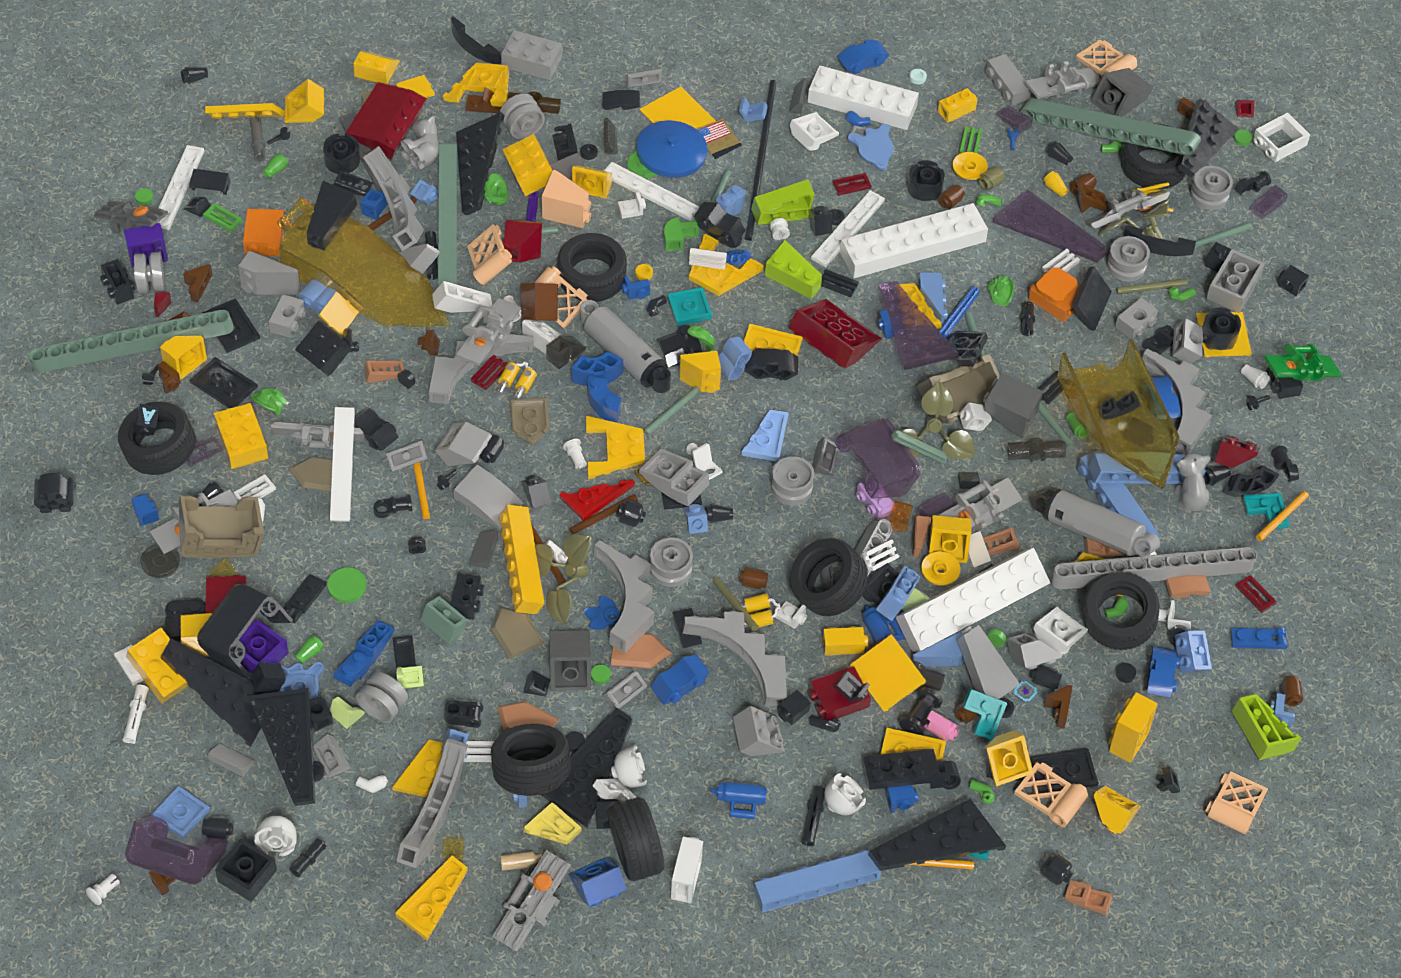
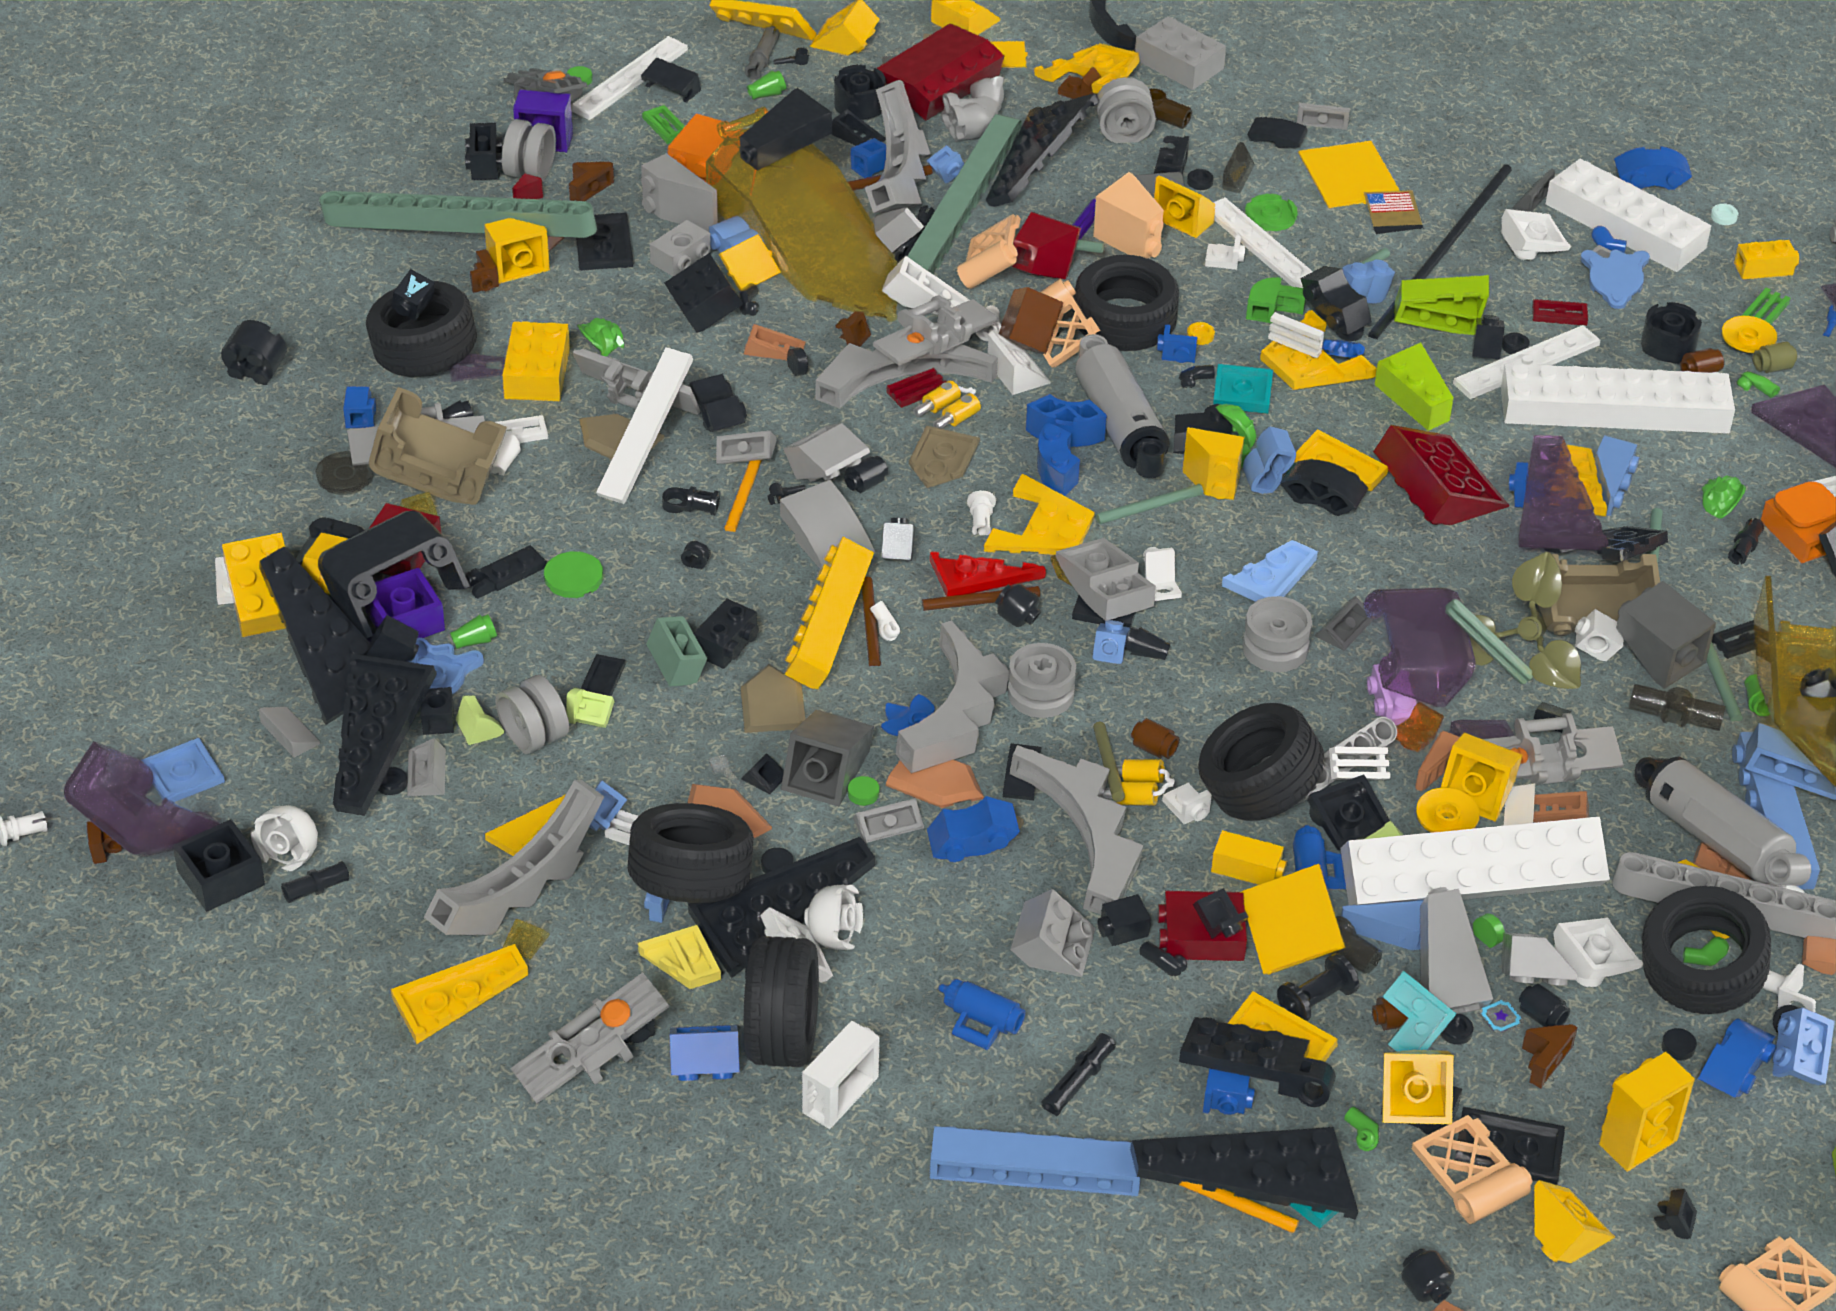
camera: 25 degrees right, 10 degrees down
(140, 694) = (204, 628): white pin -> none
(150, 377) = (461, 267): black hand -> none
(197, 206) = (641, 103): black slope -> none
(217, 827) = (216, 802): black brick -> none
(223, 383) = (553, 299): black tile -> none
(365, 654) = (550, 659): blue slope -> none
(372, 785) = (461, 823): white arm -> none
(463, 714) = (636, 773): black piece -> none
(484, 549) = (788, 589): dark grey slope -> none
(496, 190) = (1046, 186): bright green hat -> none
(519, 860) = (599, 983): tan cylinder -> none
(528, 164) = (1102, 162): yellow brick -> none
(563, 350) = (1029, 384): clear smoke slope -> none
(576, 549) = (897, 647): olive plant -> none
(671, 148) = (1317, 203): blue dish -> none
(752, 112) = (1457, 193): medium blue bracket -> none
(779, 229) = (1426, 327): white wheel -> none
(839, 280) = (1475, 418): black tile -> none
(844, 795) = (1136, 1057): white cylinder -> none
(898, 593) = (1360, 817): medium blue slope -> none
(941, 727) = (1339, 1017): bright pink cylinder -> none
(959, 311) = (1644, 504): blue axle -> none

